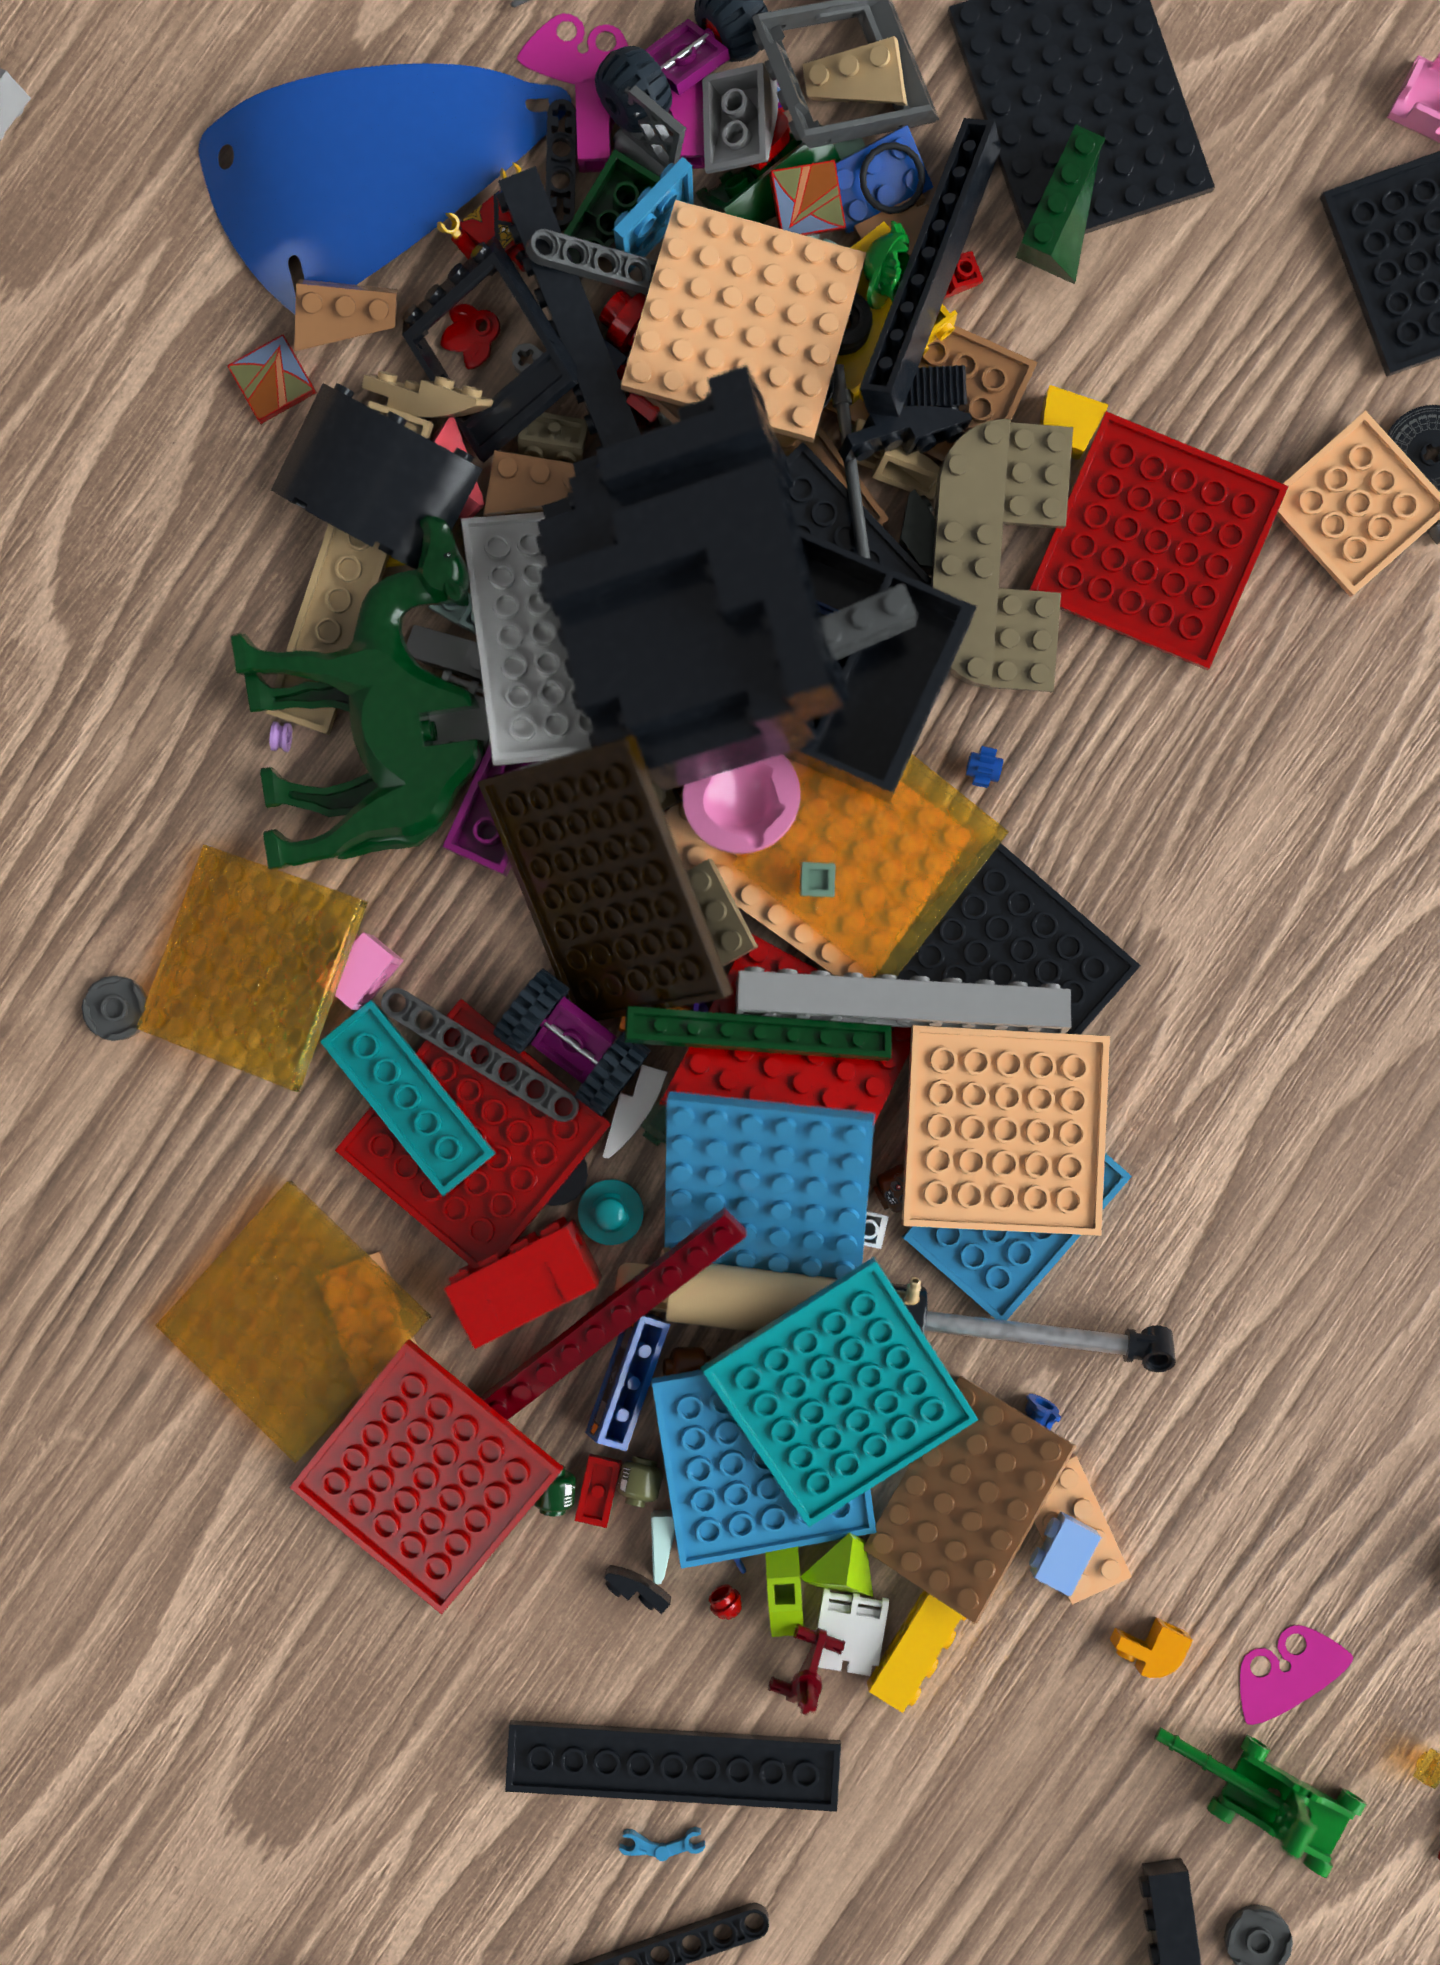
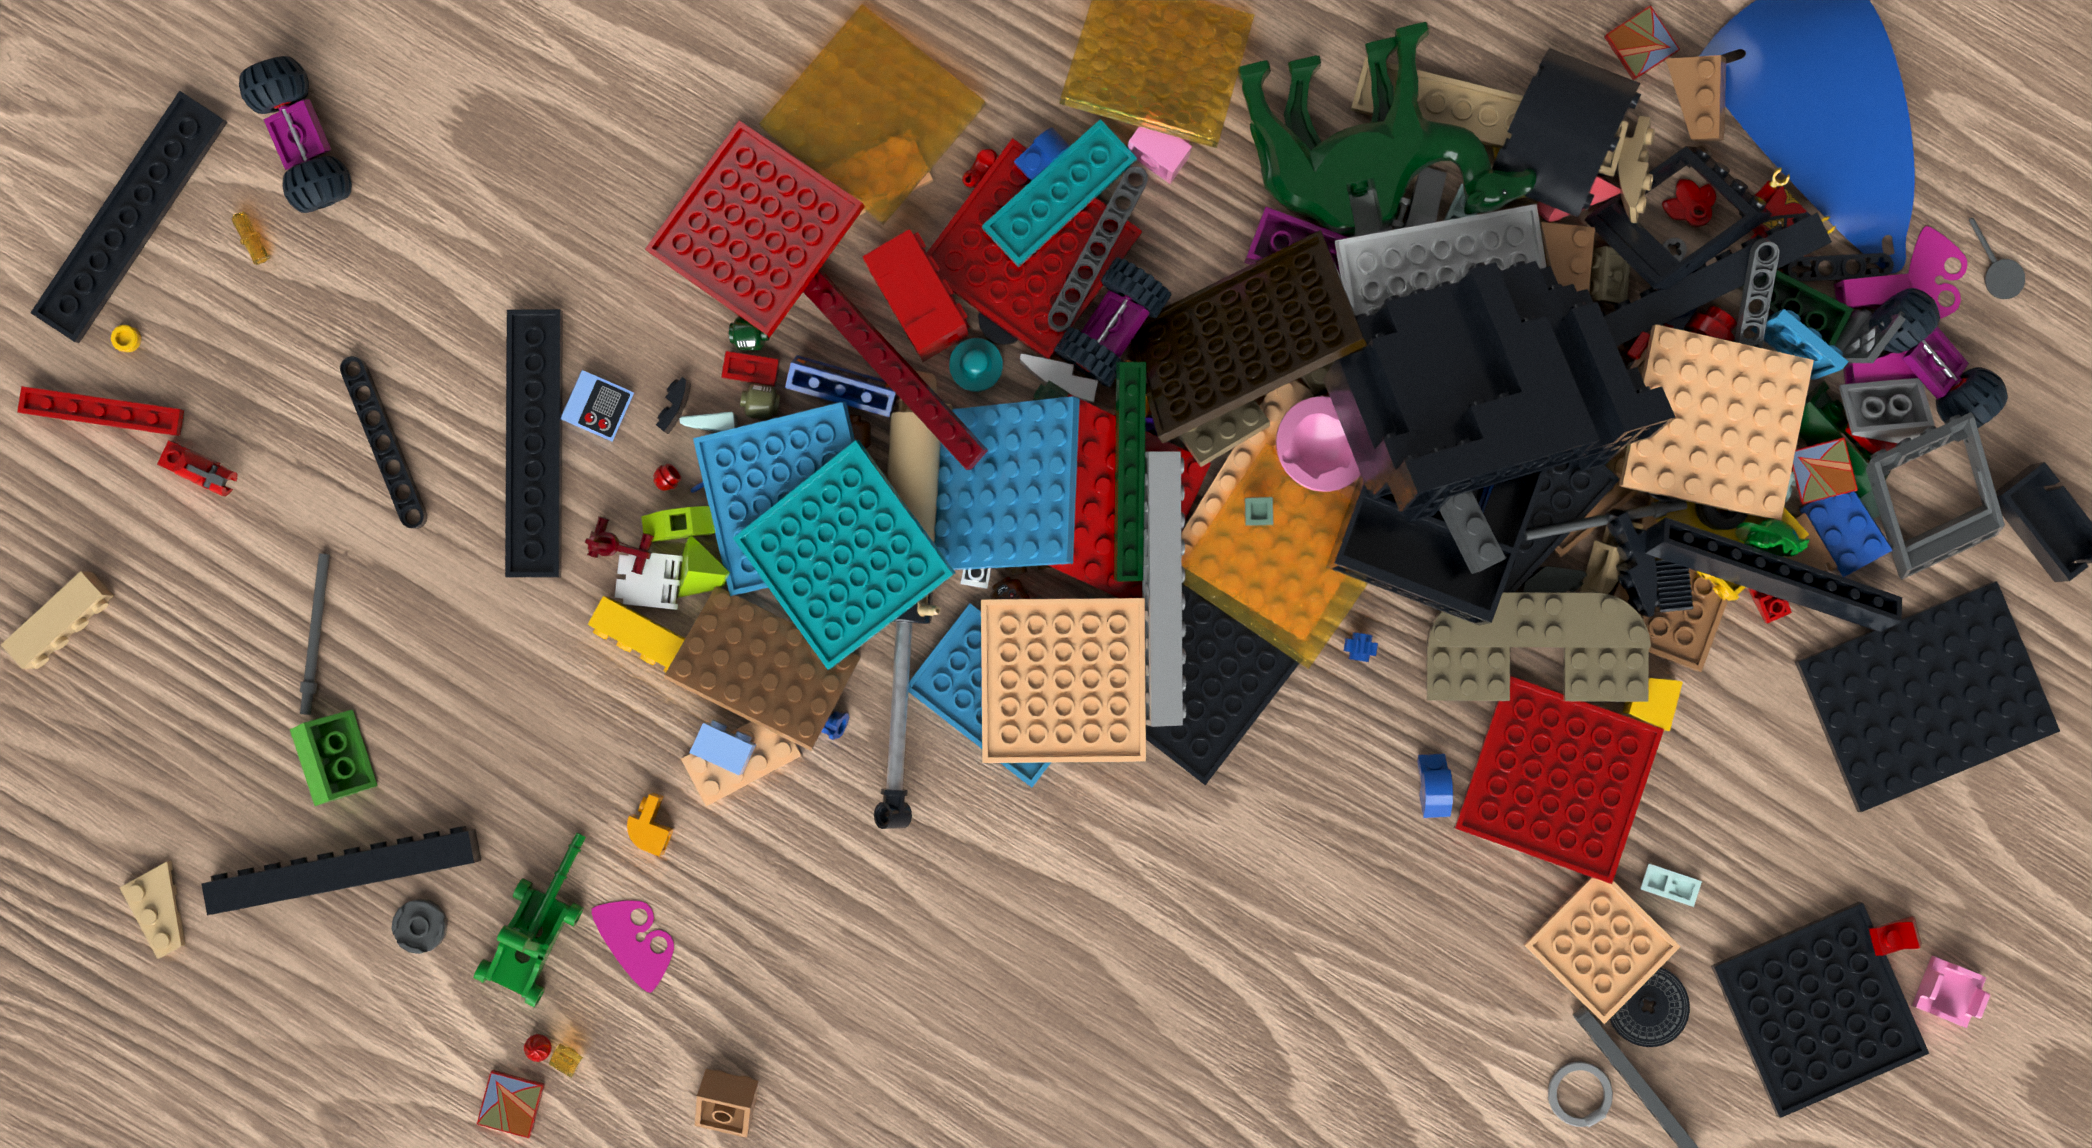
camera: 90 degrees right, 0 degrees up
(280, 736) = (1346, 70): lavender bush -> none
(357, 1115) = (1041, 153): none -> blue brick
(362, 1187) = (981, 165): none -> red piece
(631, 1684) = (597, 405): none -> slope
(661, 1851) = (464, 438): dark azure piece -> none
(859, 74) = (1932, 508): tan wing -> none
(921, 177) = (1851, 564): black piece -> none
(1060, 220) = (1827, 683): dark green wedge -> none
(1156, 687) = (1436, 786): none -> blue brick
(1288, 416) = (1671, 885): none -> light aqua slope
(1365, 156) = (1895, 936): none -> red slope
(1414, 1801) = (537, 1047): none -> red plate

